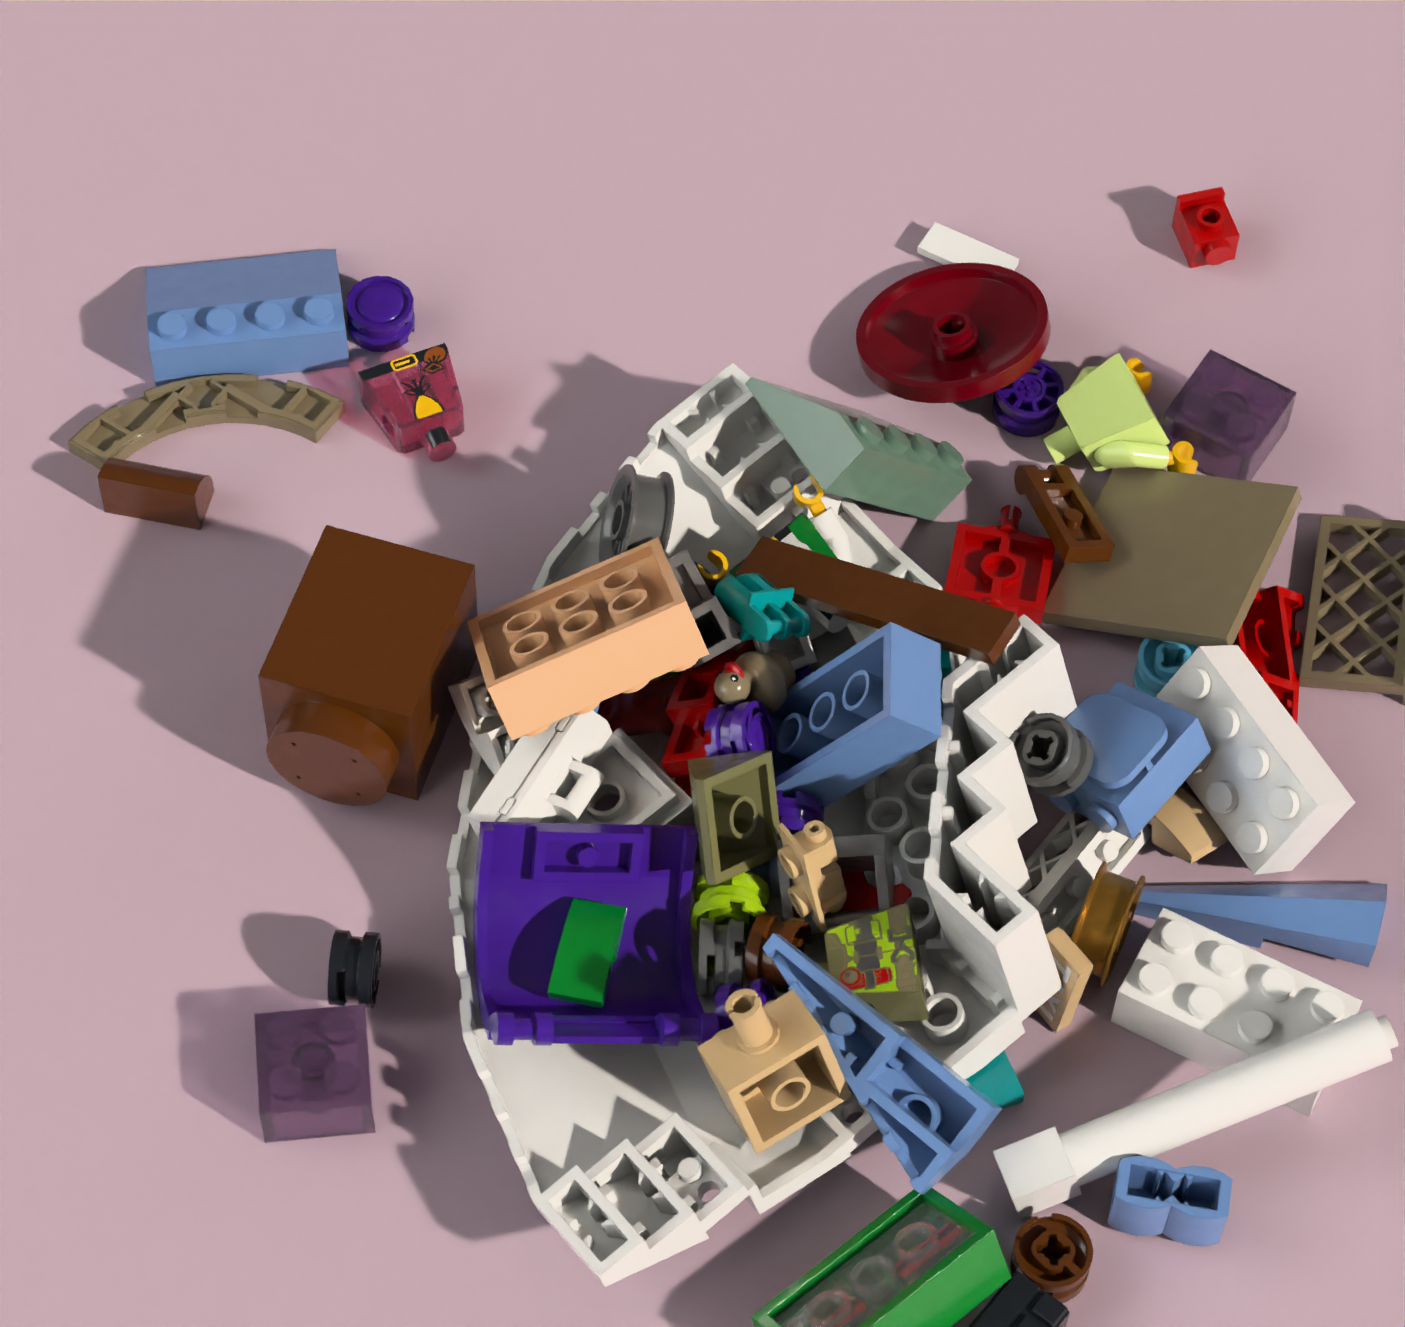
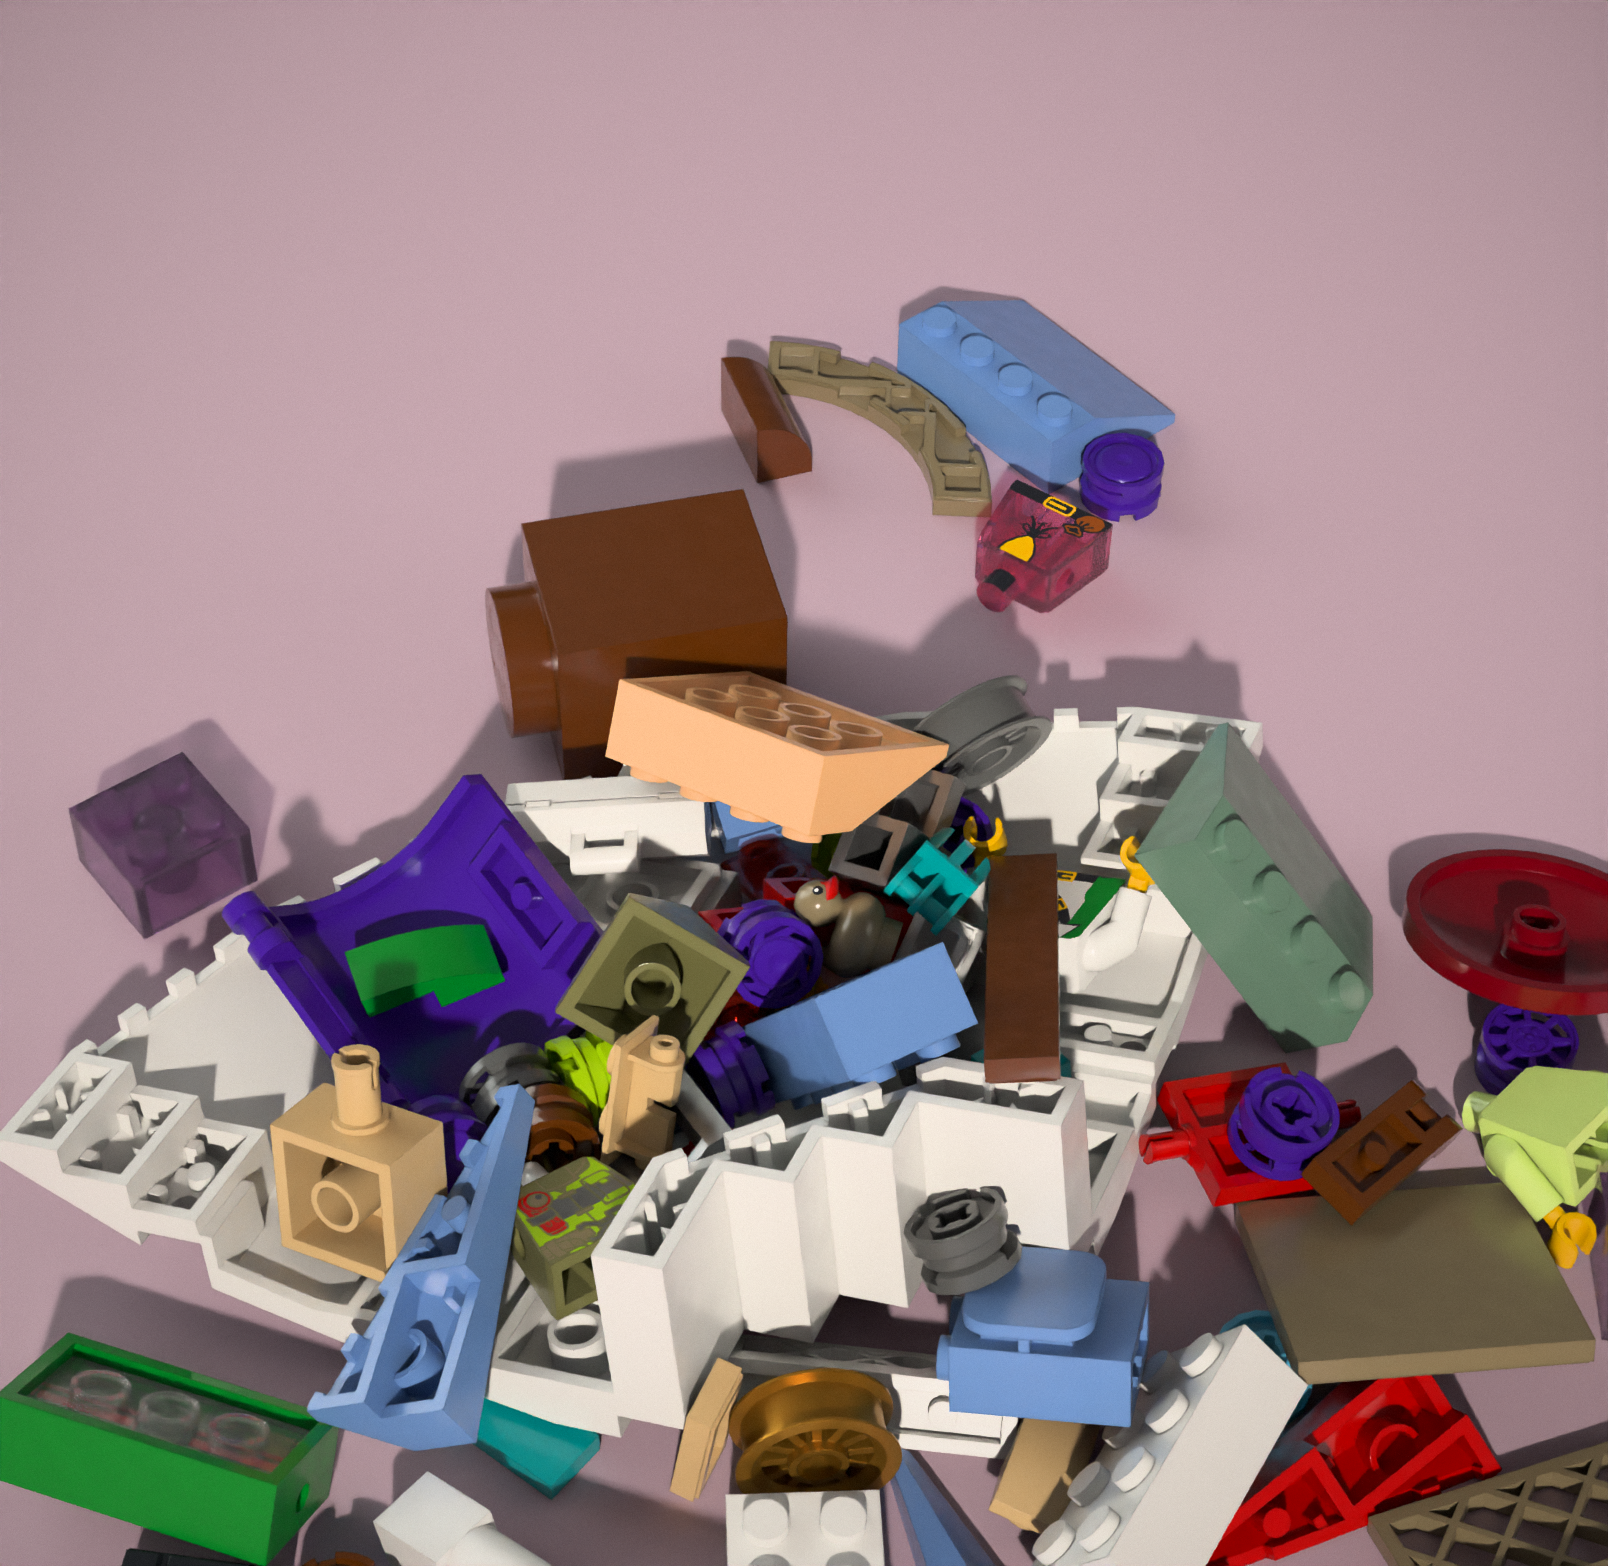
camera: 60 degrees right, 10 degrees down
(354, 968) = (303, 814): black wheel -> none
(1026, 544) = (1284, 1120): none -> dark purple wheel

